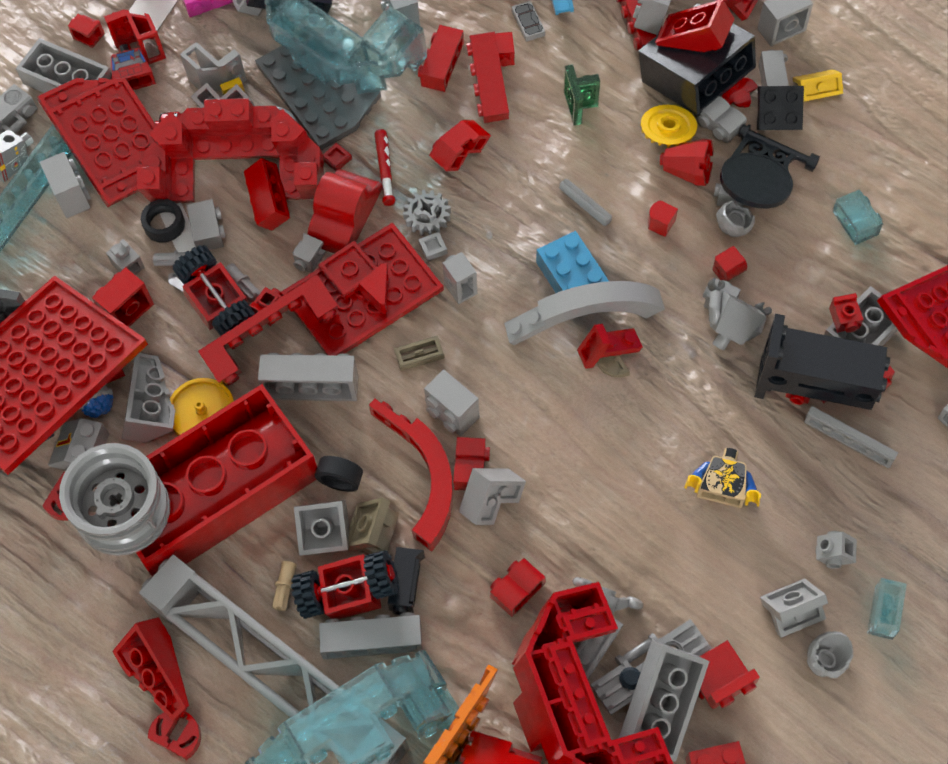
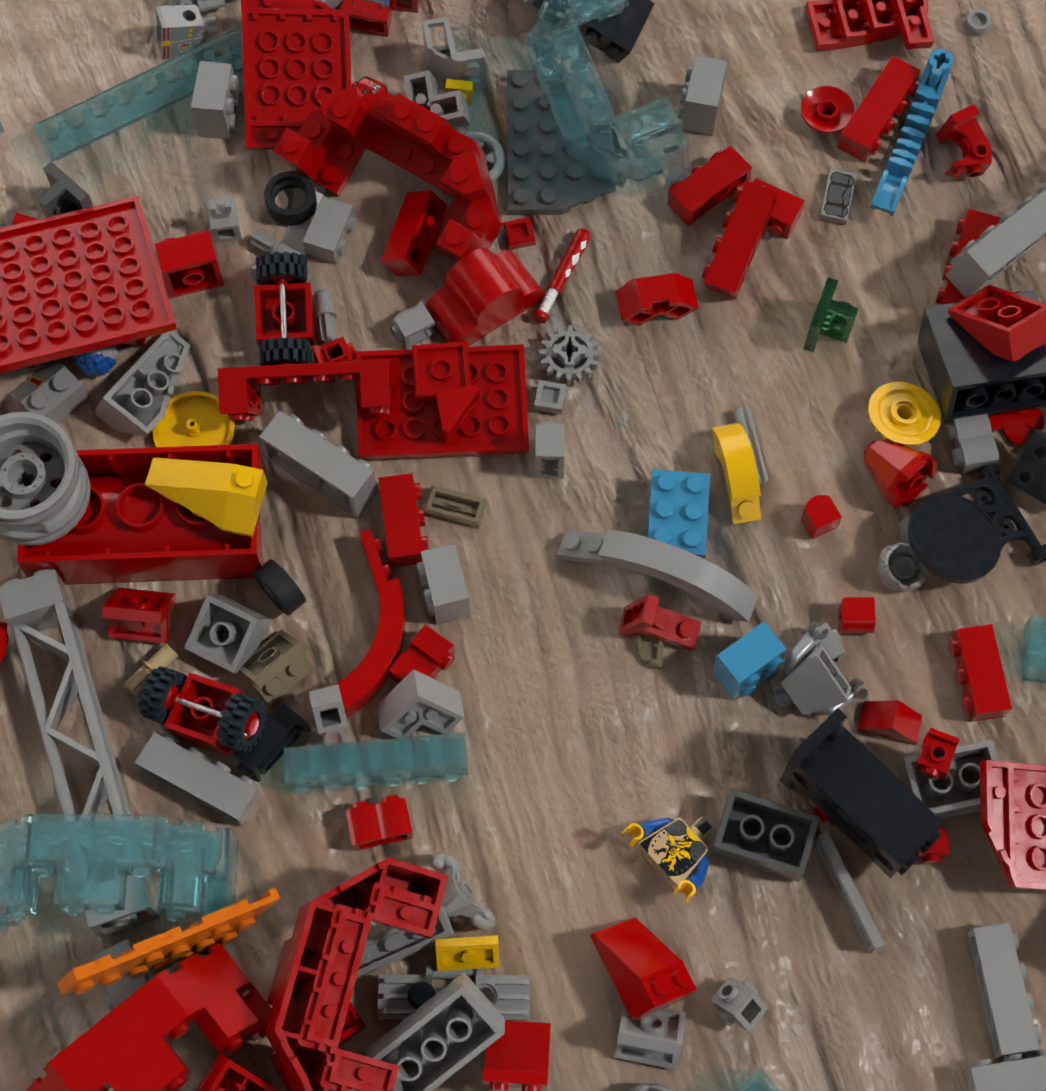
camera: 30 degrees right, 5 degrees up
(251, 554) = (139, 615): none -> red bracket
(253, 431) = (216, 491): none -> yellow wedge
(390, 381) = (402, 519): none -> red brick
(436, 531) = (329, 712): none -> light grey brick
(486, 548) = (376, 762): none -> clear light blue brick
(591, 215) = (740, 472): none -> yellow arch
(639, 631) = (467, 953): none -> yellow panel
(686, 331) = (749, 661): none -> dark azure brick
(760, 566) = (642, 968): none -> red slope
(774, 433) = (765, 835): none -> dark grey brick
(799, 314) = (890, 720): none -> red slope
(830, 253) = (980, 673): none -> red brick

